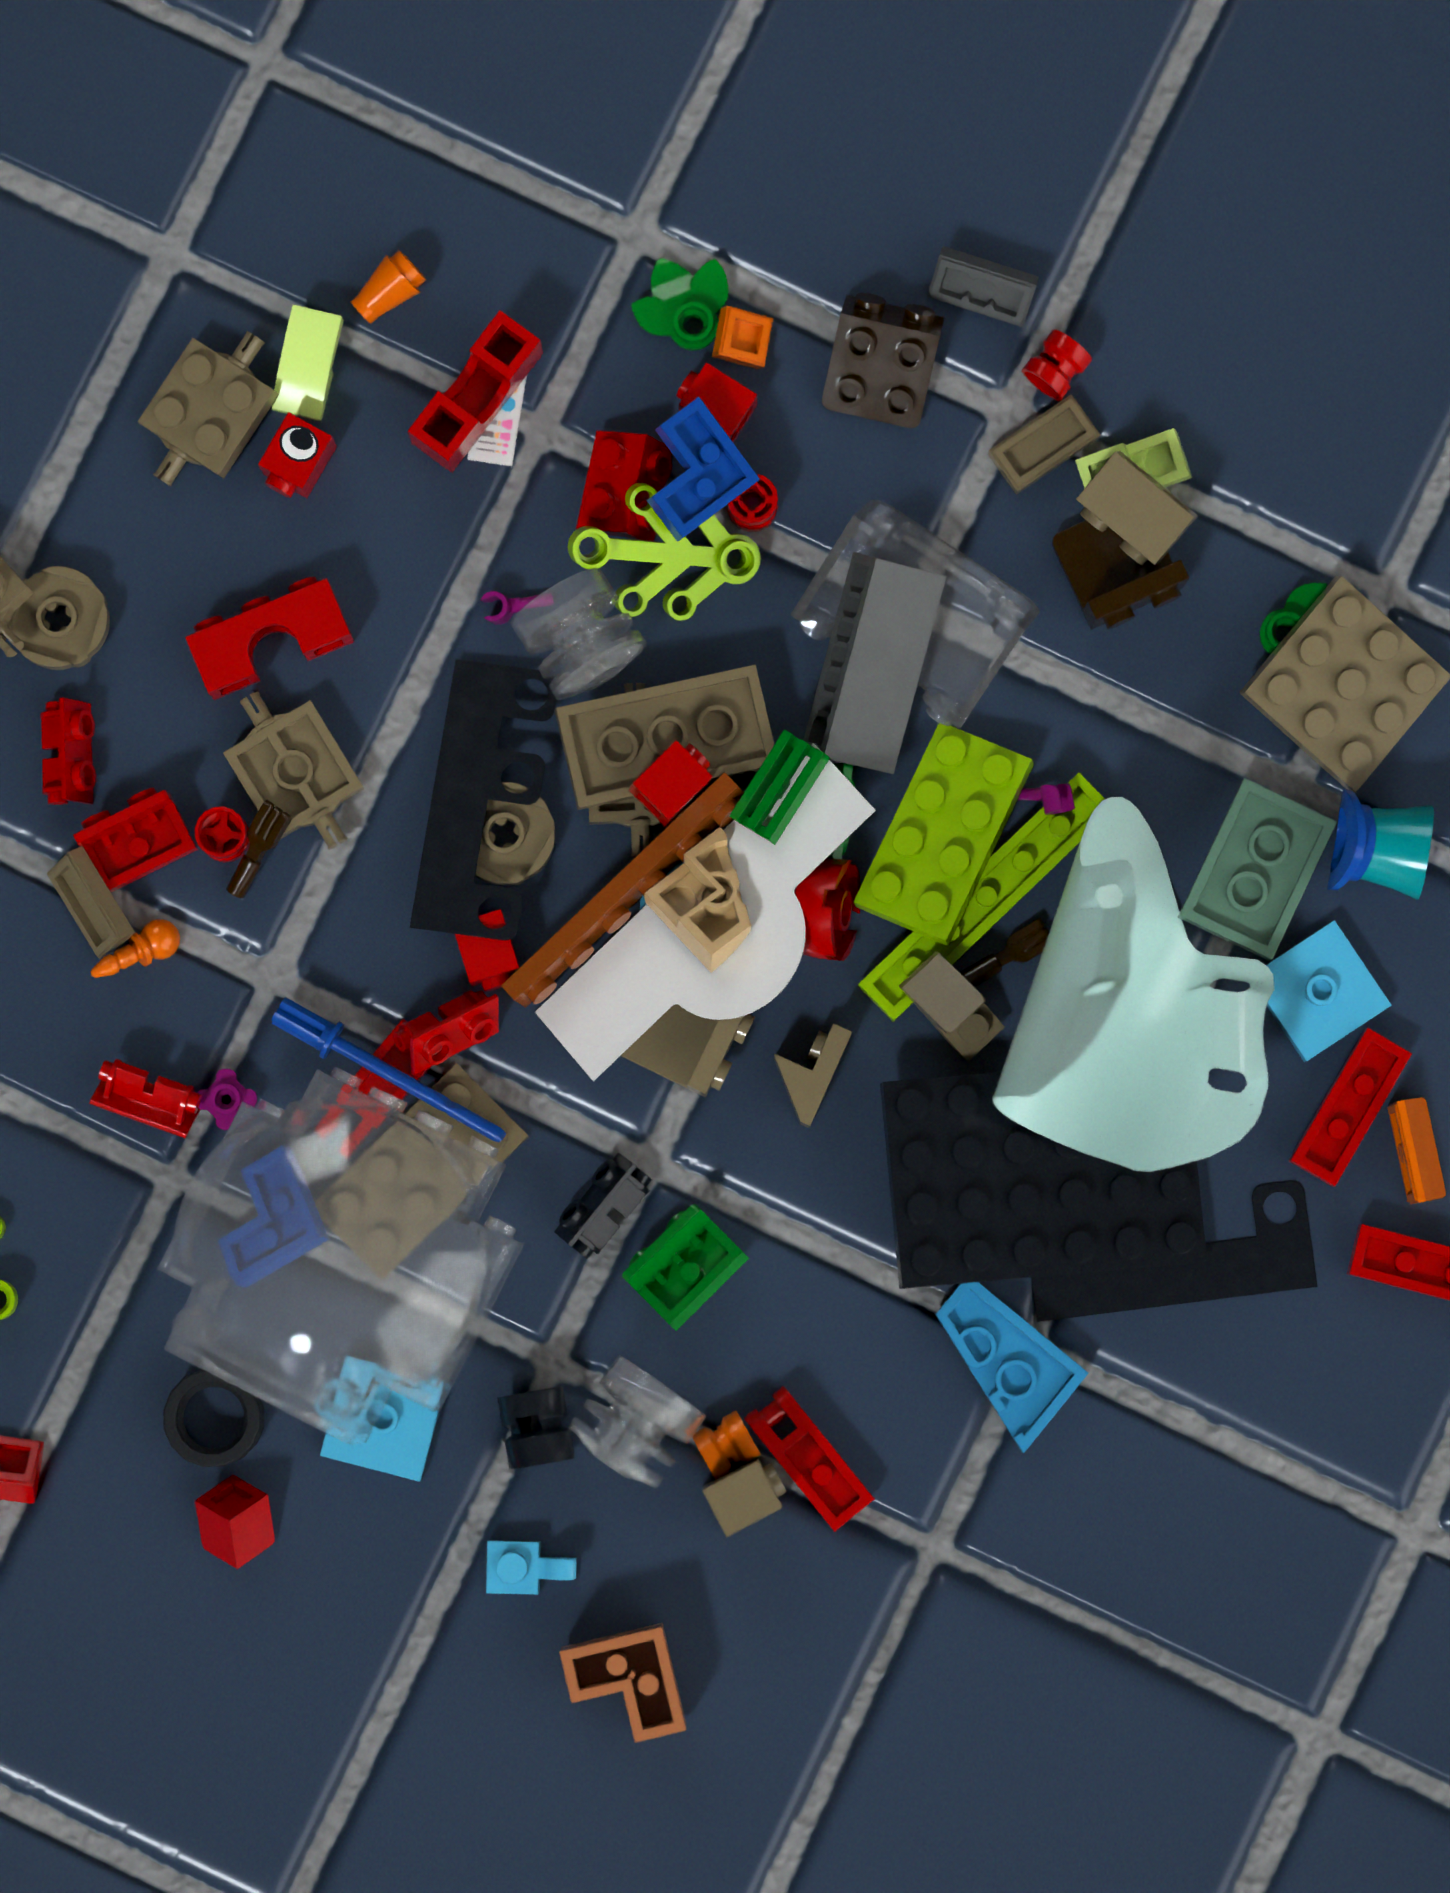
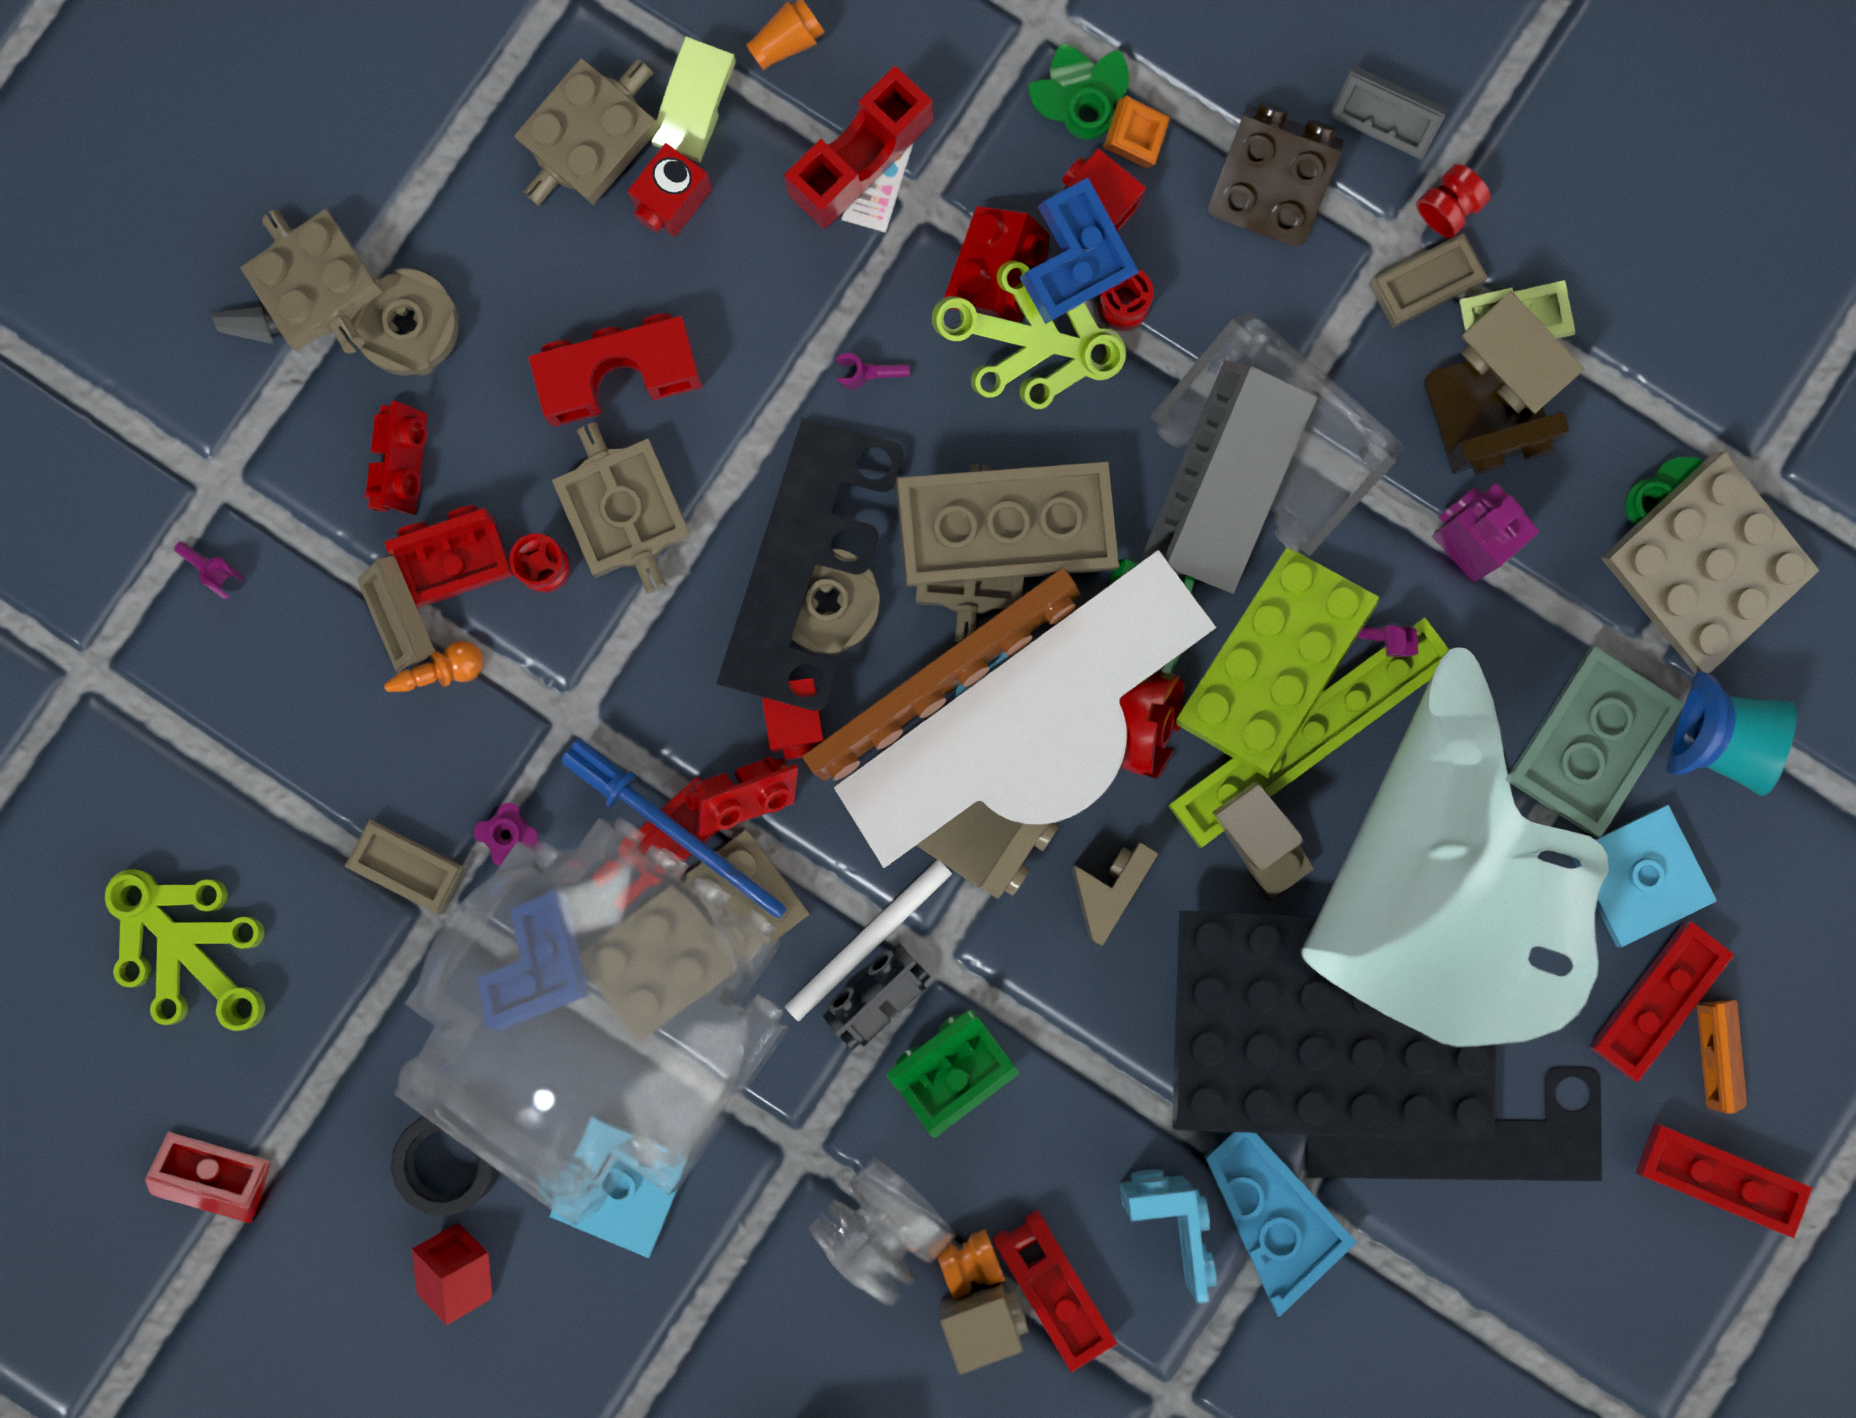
camera: 10 degrees right, 0 degrees up
(133, 1145) = (405, 867): none -> dark tan tile
(163, 1105) = (433, 830): red hinge -> none
(263, 835) = (580, 570): dark brown piece -> none
(518, 1567) = (738, 1361): medium azure plate -> none
(538, 1446) = (781, 1239): black wheel -> none
(573, 625) = (930, 405): clear wheel -> none
(587, 1153) = (868, 940): none -> white bar
(672, 781) = (1007, 569): red brick -> none
(704, 902) = (1023, 699): tan slope -> none
(764, 778) = (1104, 577): green tile -> none
(890, 1351) = (1157, 1196): none -> medium azure bracket
(1019, 948) = (1338, 789): dark brown piece -> none
(1121, 682) = (1484, 531): none -> magenta hinge

